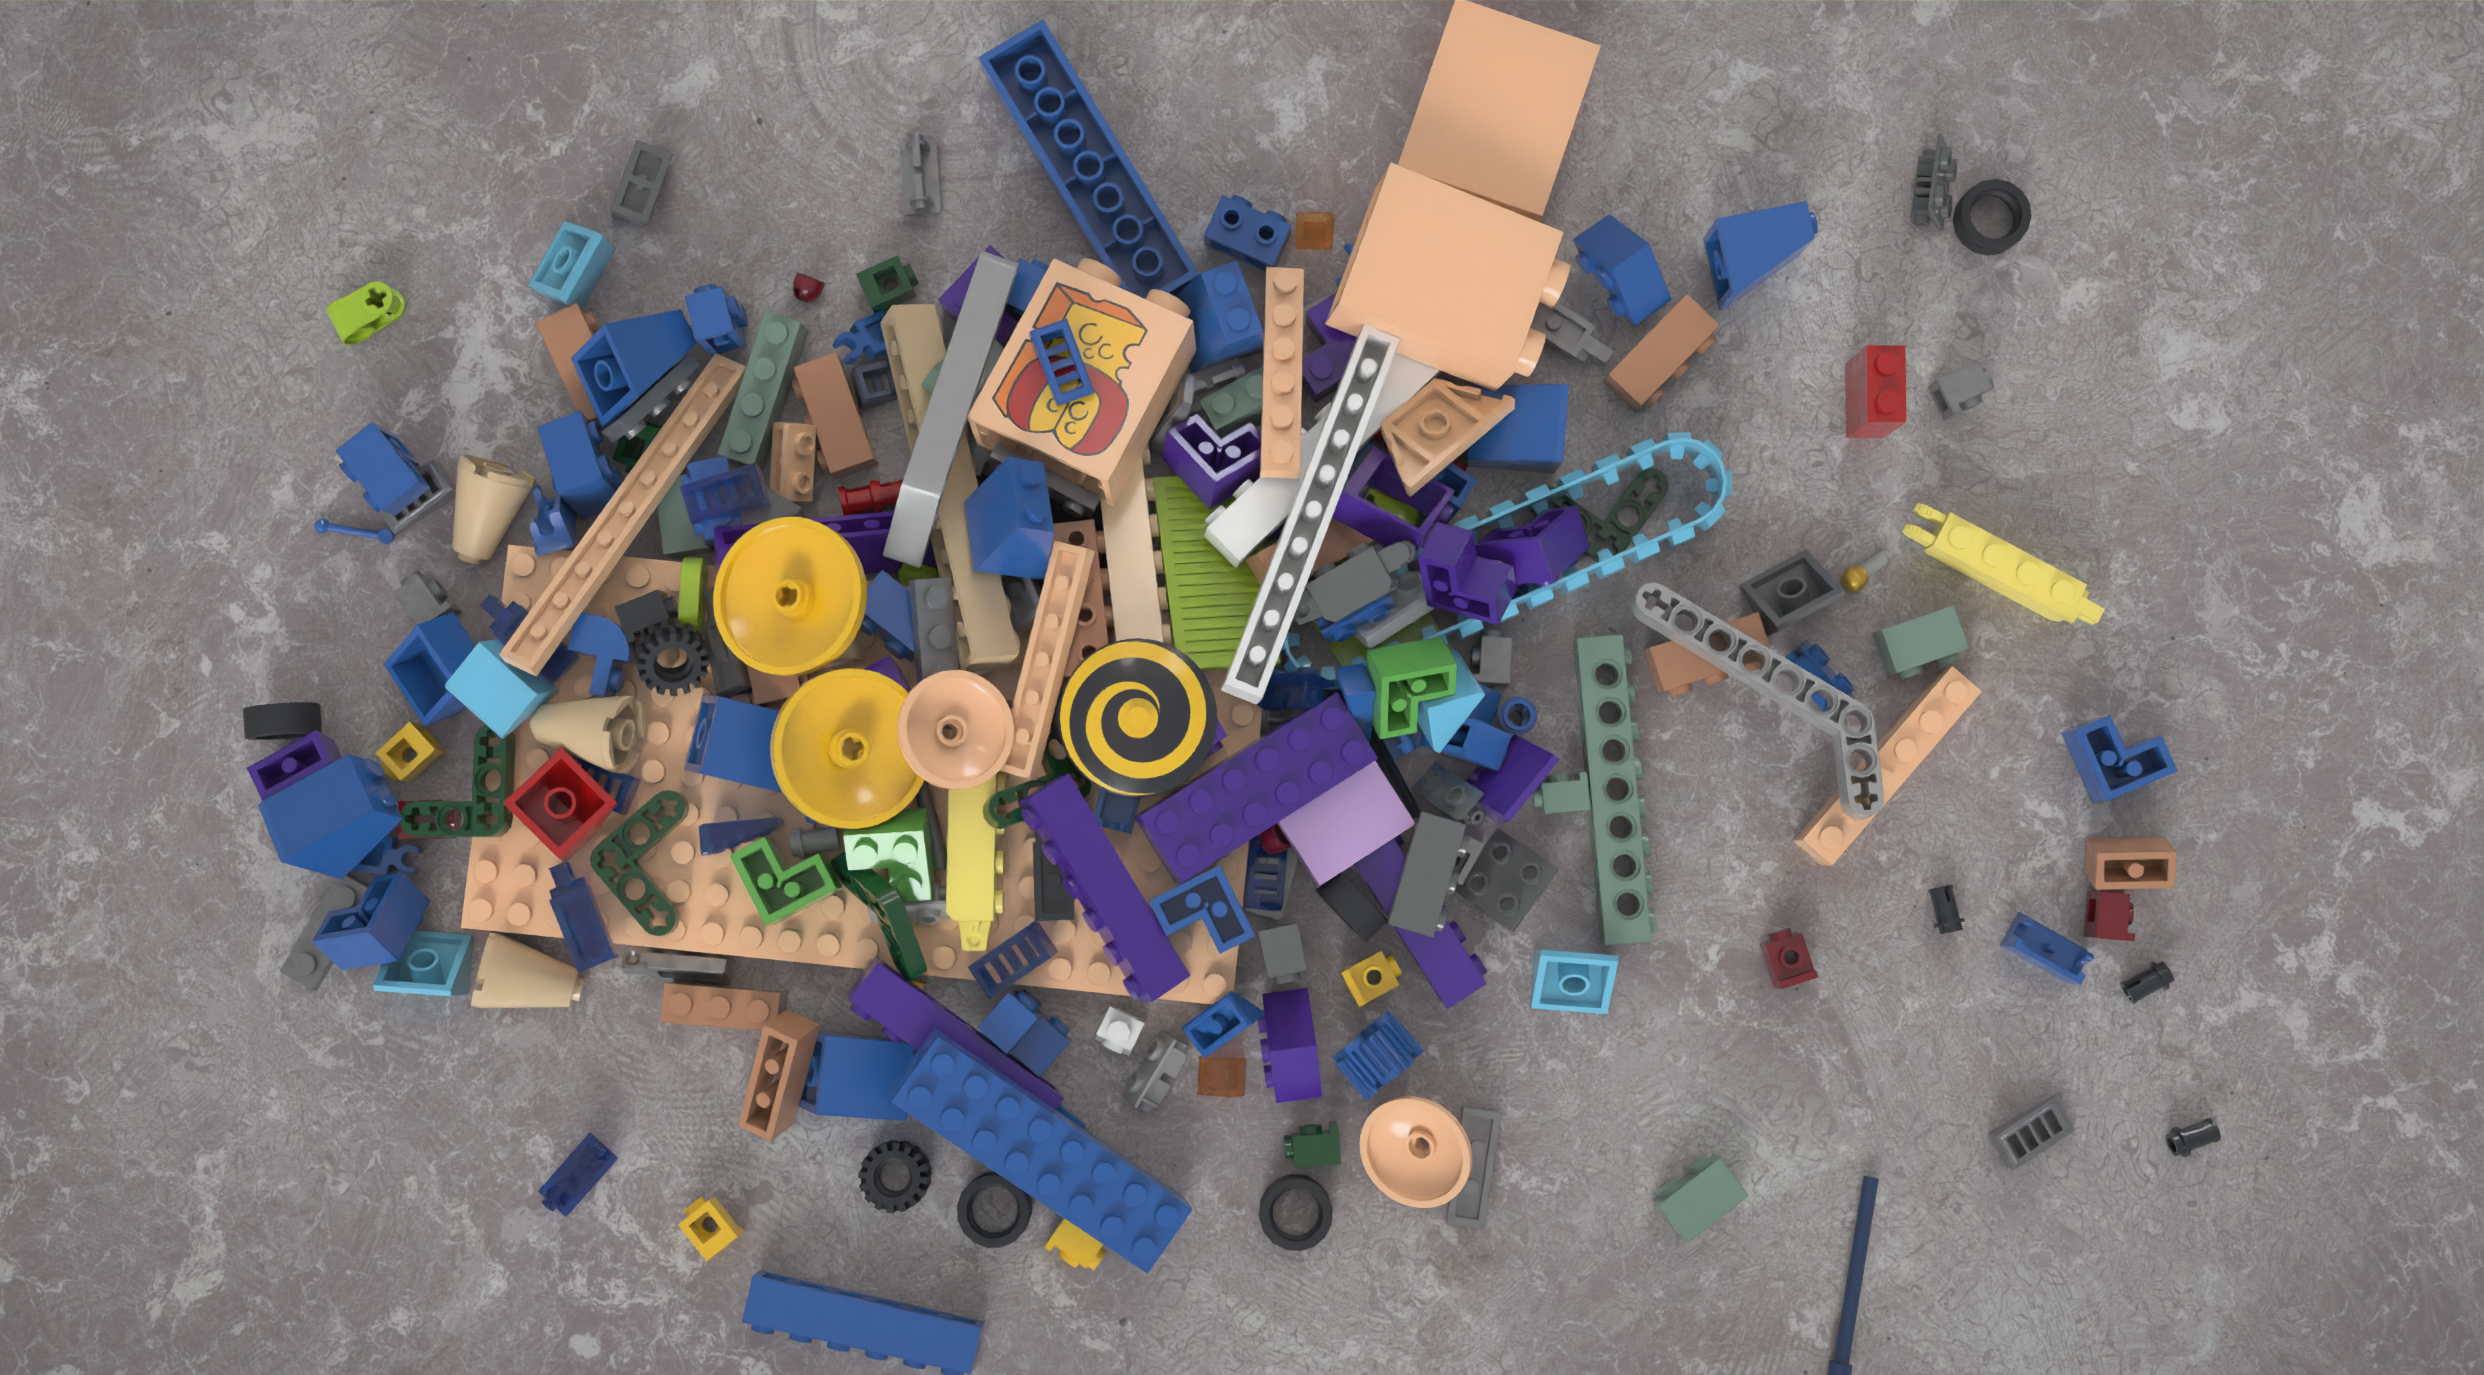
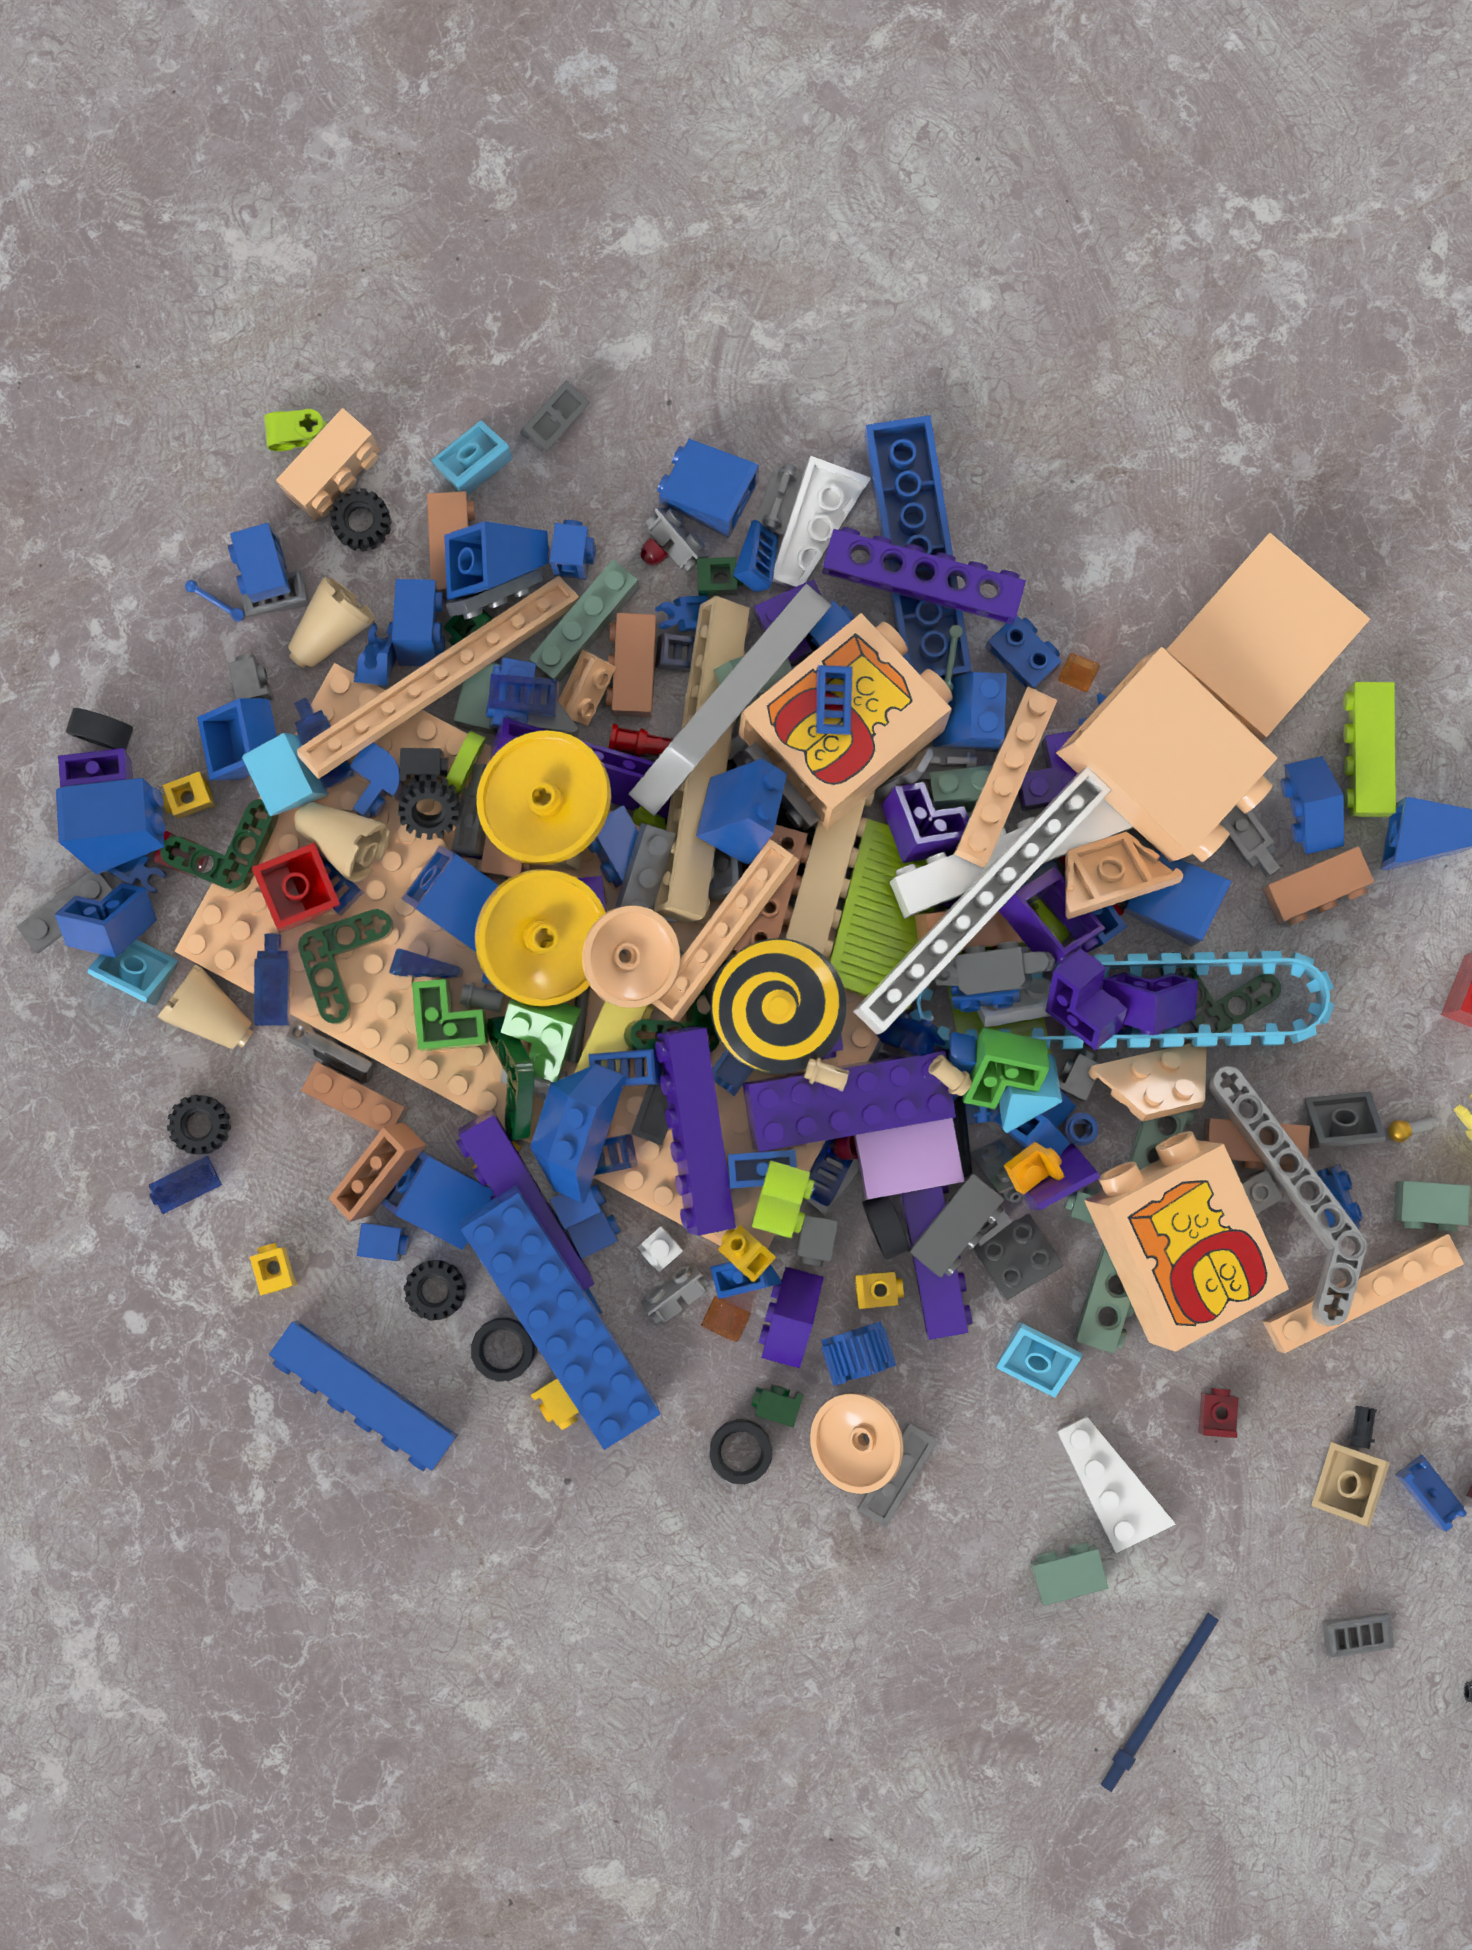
camera: 25 degrees right, 0 degrees up
(416, 334) = (329, 465): none -> light nougat brick
(454, 379) = (354, 501): none -> black tyre
(543, 1108) = (179, 1119): none -> black tyre
(813, 253) = (669, 527): none -> light grey hinge
(816, 1148) = (382, 1242): none -> blue brick
(838, 191) = (709, 486): none -> blue slope
(913, 266) = (745, 570): none -> blue slope
(966, 172) = (819, 507): none -> white wing
(973, 939) = (576, 1127): none -> blue wedge
(1029, 838) = (653, 1065): none -> blue slope
(1089, 208) = (904, 582): none -> dark purple brick
(1165, 240) = (955, 632): none -> sand green hinge
(1206, 995) = (745, 1252): none -> yellow brick
(1219, 770) = (826, 1074): none -> tan pin
(1227, 925) = (781, 1199): none -> lime brick
(1354, 716) = (951, 1076): none -> tan pin
(1483, 777) = (1033, 1166): none -> light orange bracket
(1577, 631) = (1157, 1081): none -> light nougat wing
(1657, 186) = (1371, 749): none -> lime brick
(1677, 790) = (1185, 1241): none -> brick
(1712, 1088) = (1115, 1492): none -> white wing
(1731, 706) = (1261, 1190): none -> light grey brick
(1958, 975) = (1350, 1484): none -> tan slope

